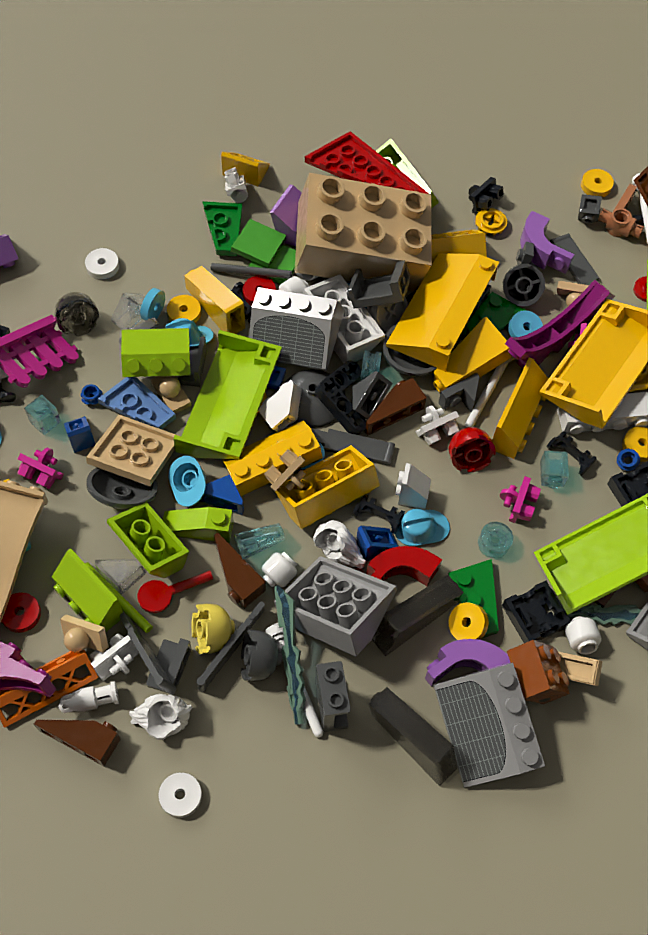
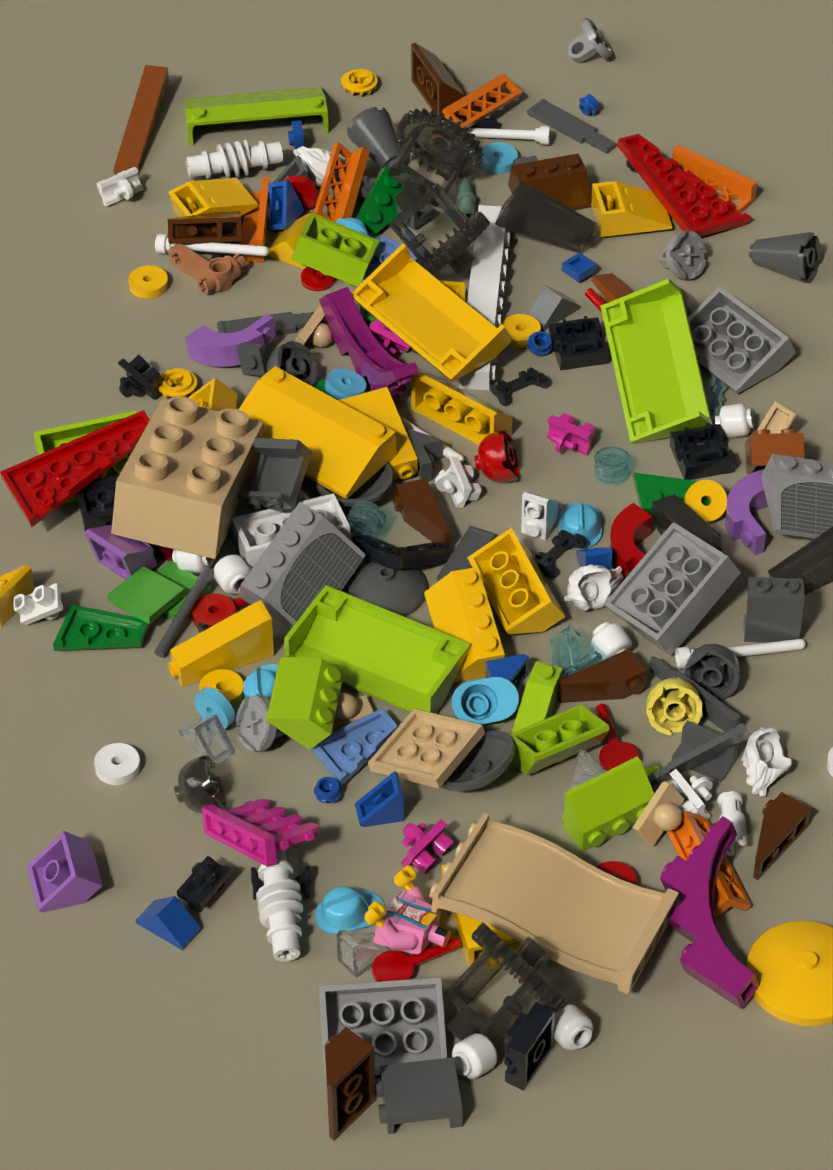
camera: 75 degrees left, 15 degrees down
(42, 414) = (349, 834): clear light blue brick -> none
(276, 478) = (505, 598): tan hips -> none
(283, 407) = (403, 600): white slope -> none
(291, 654) = (680, 629): sand green sword -> none
(370, 393) = (405, 526): dark grey slope -> none
(554, 469) = (538, 400): clear light blue brick -> none
(589, 208) = (190, 294): dark grey bracket -> none

